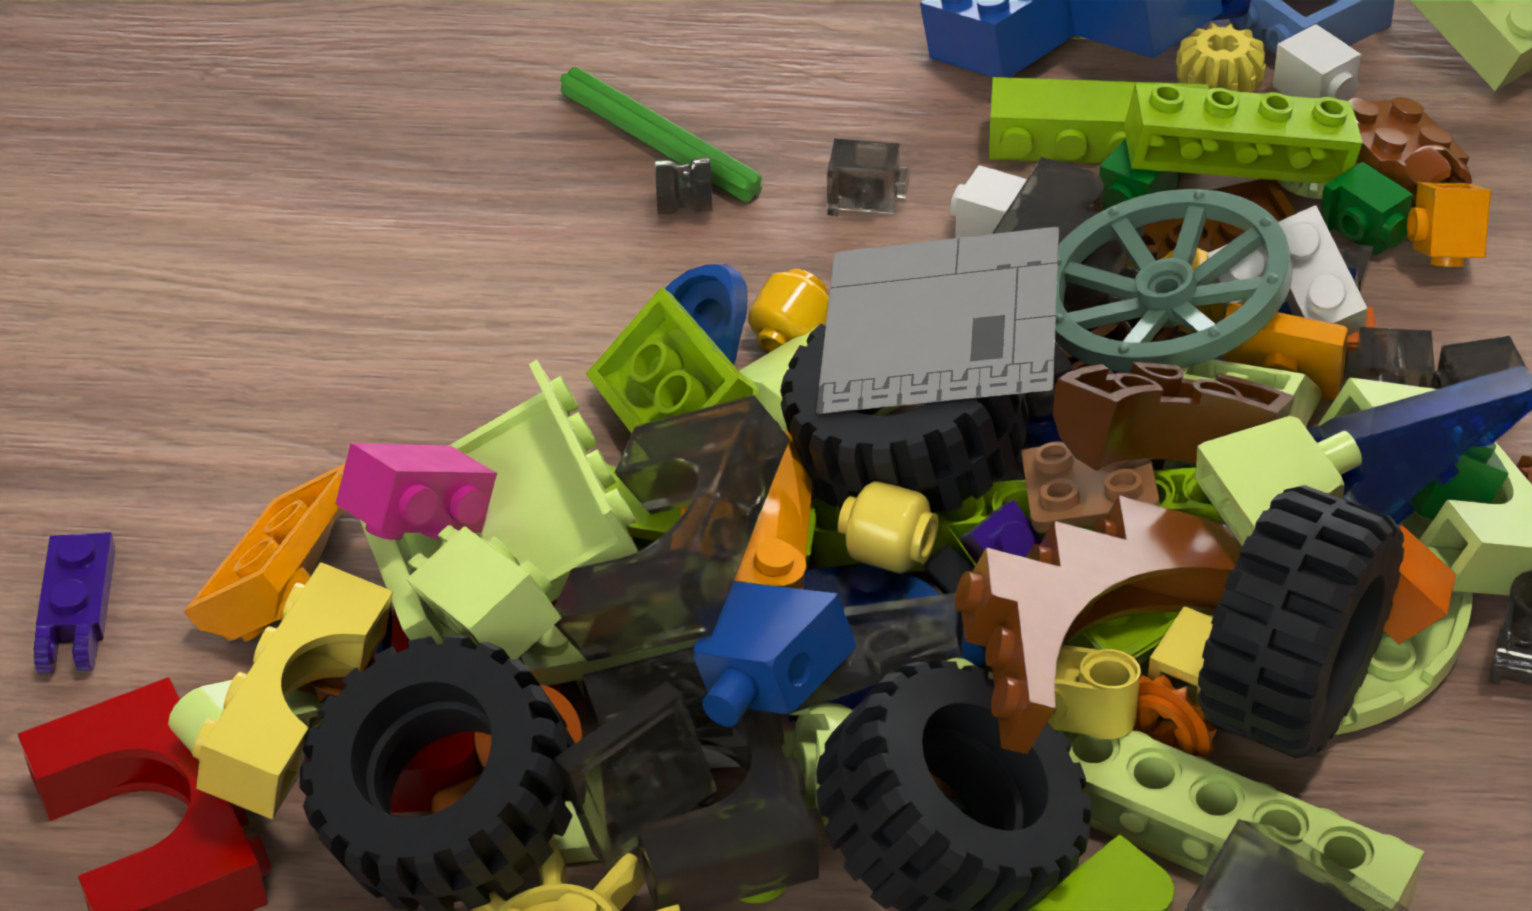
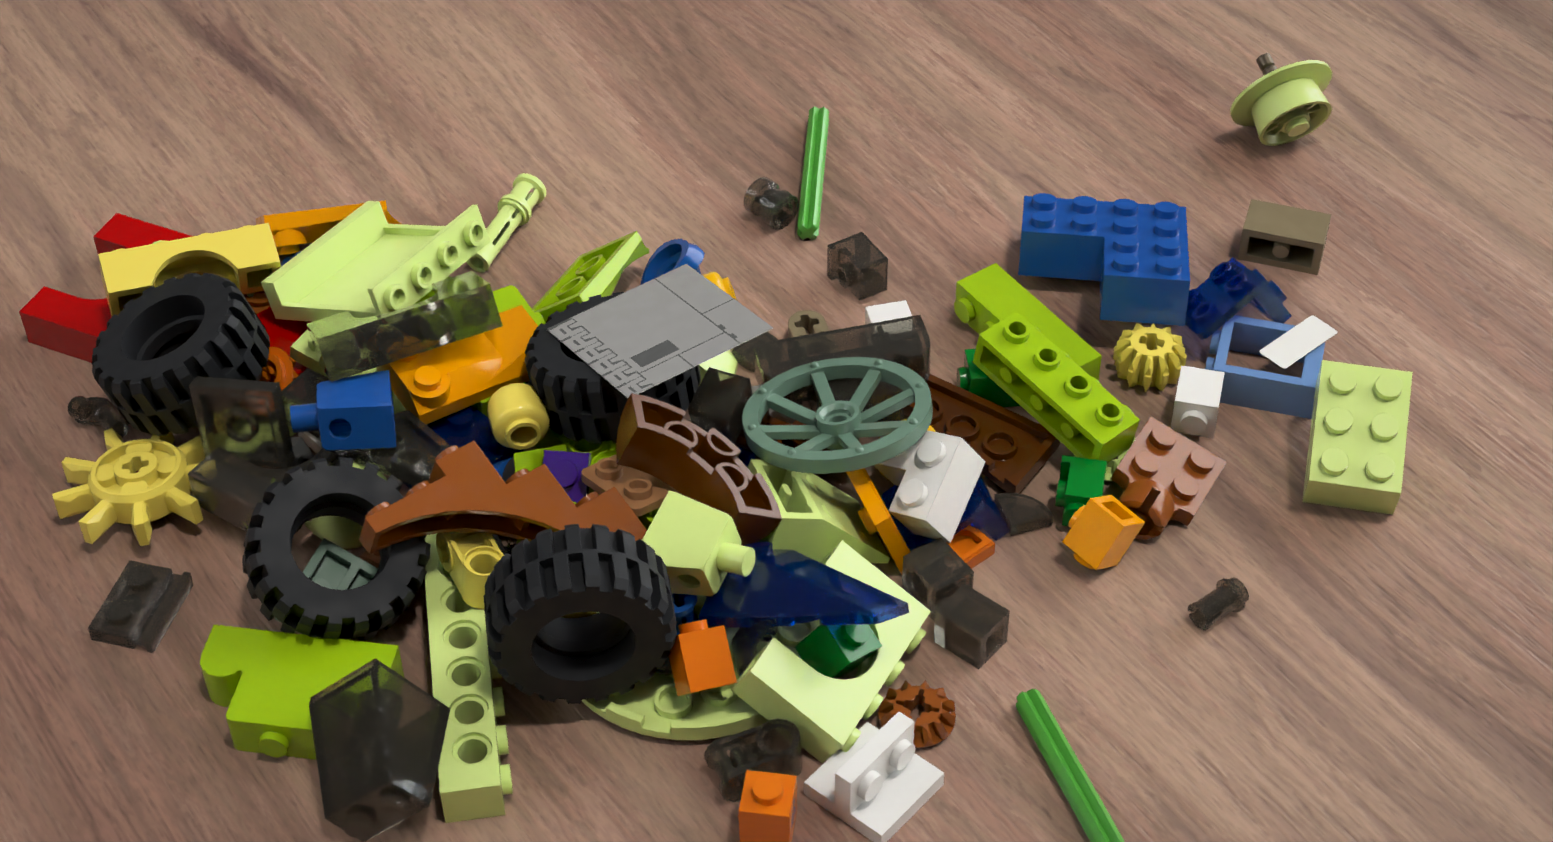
camera: 50 degrees right, 0 degrees up
(74, 598) = (242, 184): dark purple hinge -> none
(414, 489) = (352, 224): dark pink brick -> none
(439, 382) = (513, 211): none -> yellowish green pin
(484, 591) = (296, 289): yellowish green hinge -> none

